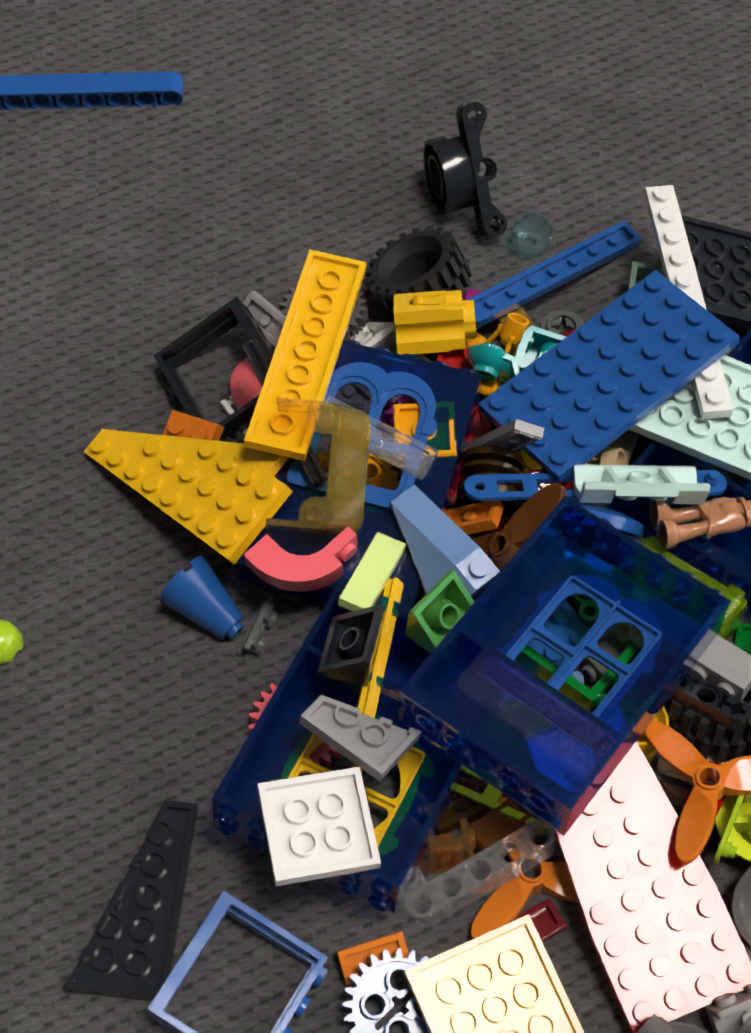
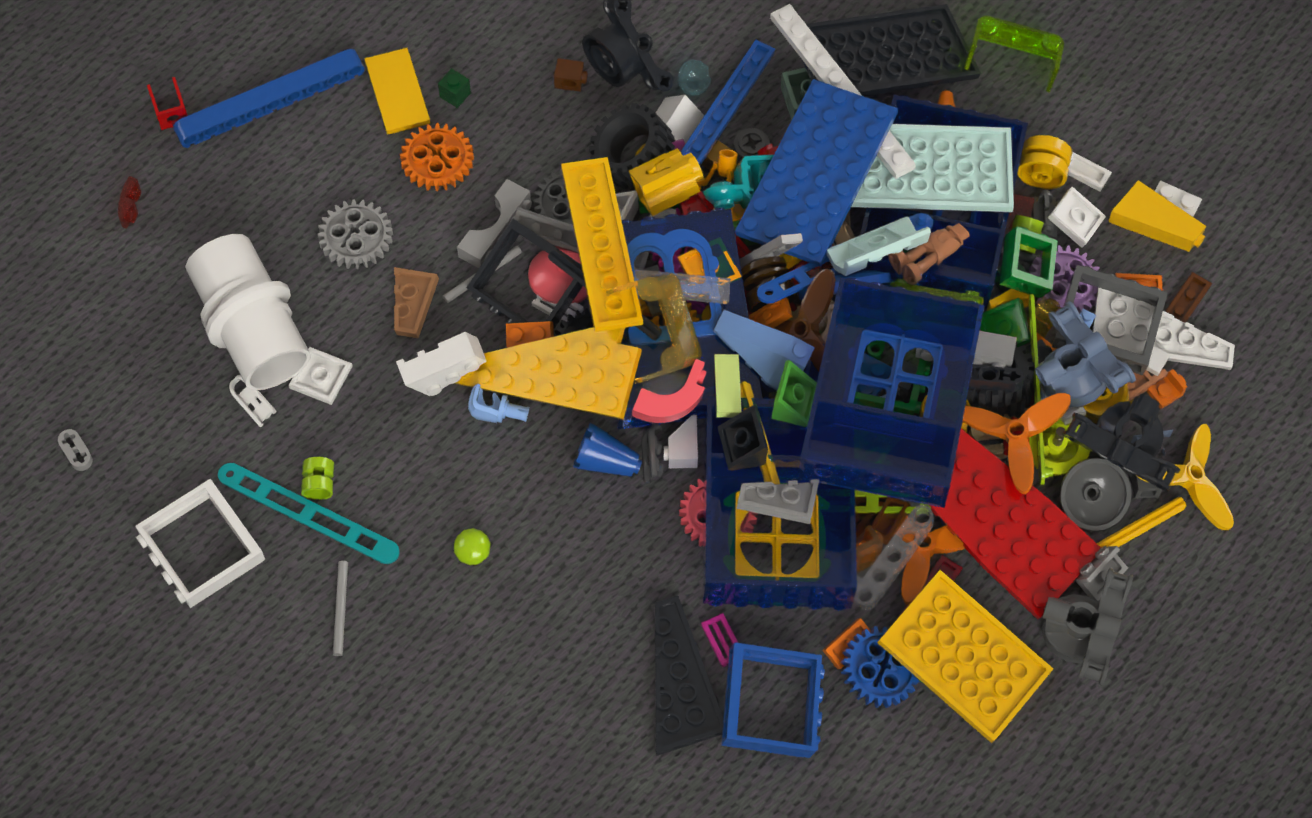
camera: 25 degrees left, 5 degrees up
(72, 257) = (355, 234): none -> light grey gear
(74, 426) = (444, 365): none -> white wedge
(94, 347) = (412, 300): none -> medium nougat wing
(111, 504) = (497, 411): none -> light blue piece
(188, 220) = (450, 145): none -> orange gear
(204, 134) = (397, 91): none -> yellow tile
(217, 345) = (461, 288): none -> light grey bar
(224, 854) = (705, 625): none -> dark pink tile
(254, 278) = (478, 244): none -> light grey arch
(263, 150) = (454, 88): none -> dark green brick
(295, 626) = (682, 445): none -> white slope
(318, 826) = (786, 569): white plate -> none
(396, 182) = (570, 75): none -> reddish brown brick
(492, 267) = (680, 116): none -> white slope

